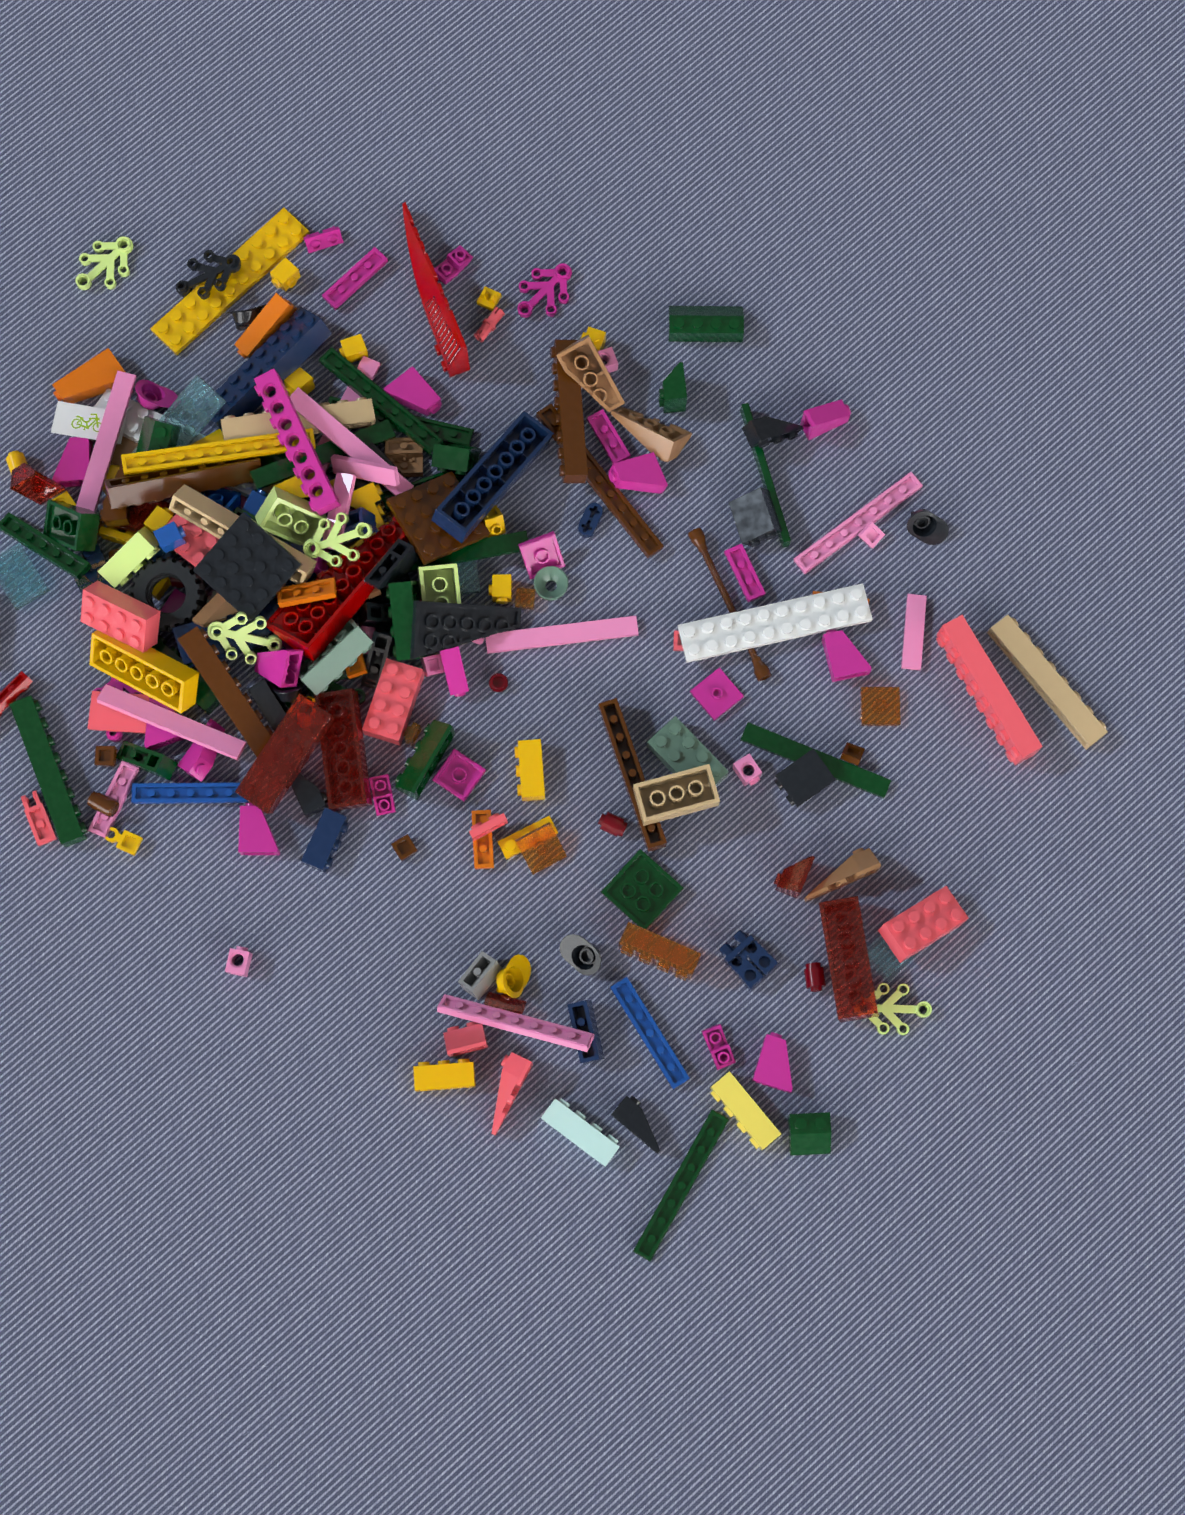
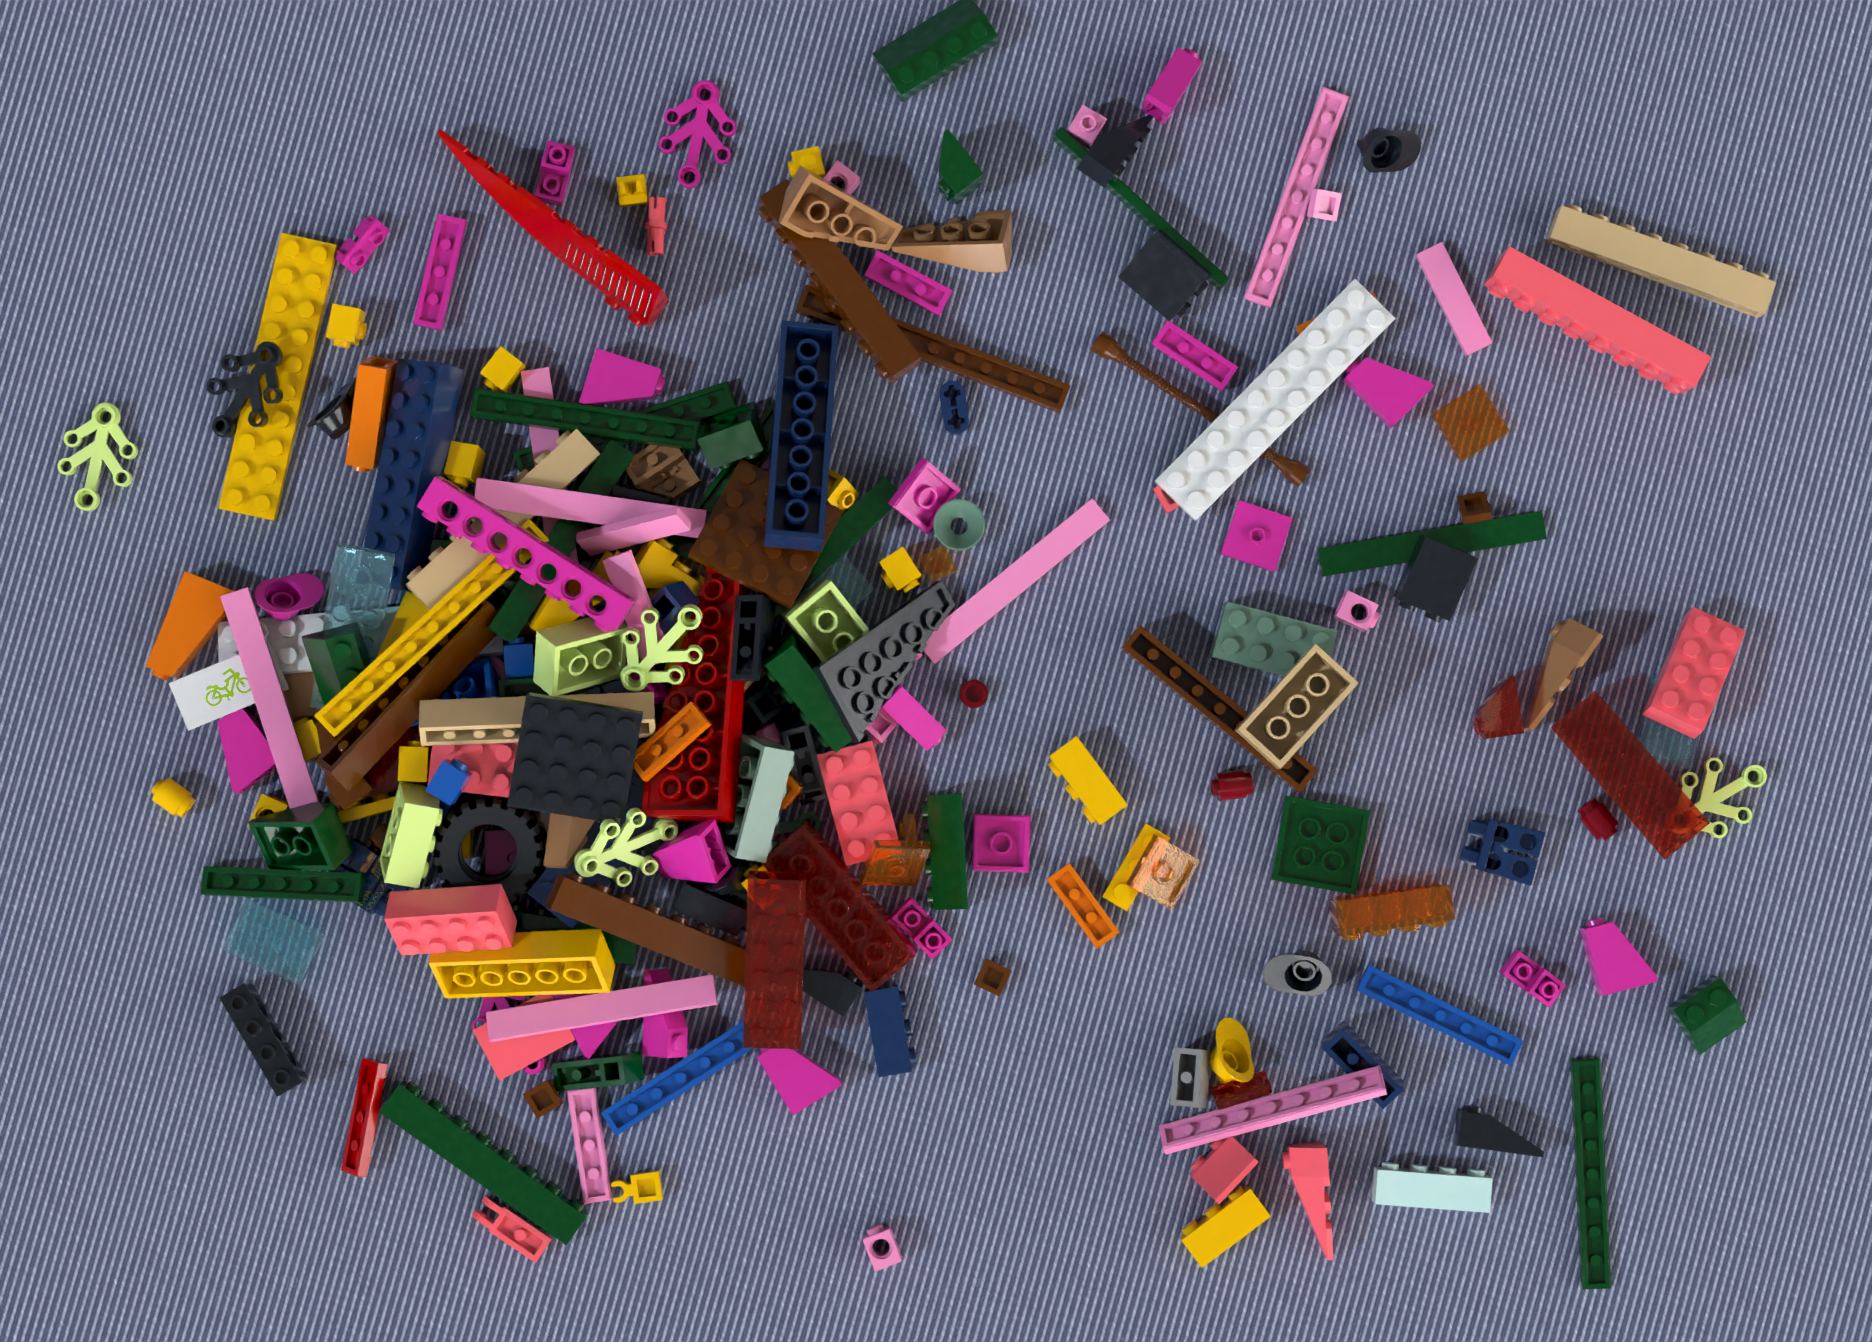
camera: 30 degrees left, 10 degrees up
(34, 484) = (214, 811): clear red slope -> none
(103, 804) = (583, 1161): reddish brown piece -> none
(390, 745) = (894, 863): none -> clear orange plate
(495, 822) = (1087, 877): coral plate -> none
(639, 474) = (980, 310): dark pink slope -> none
(745, 1110) = (1614, 1037): light yellow brick -> none
(762, 409) = (1087, 126): none -> bright pink brick

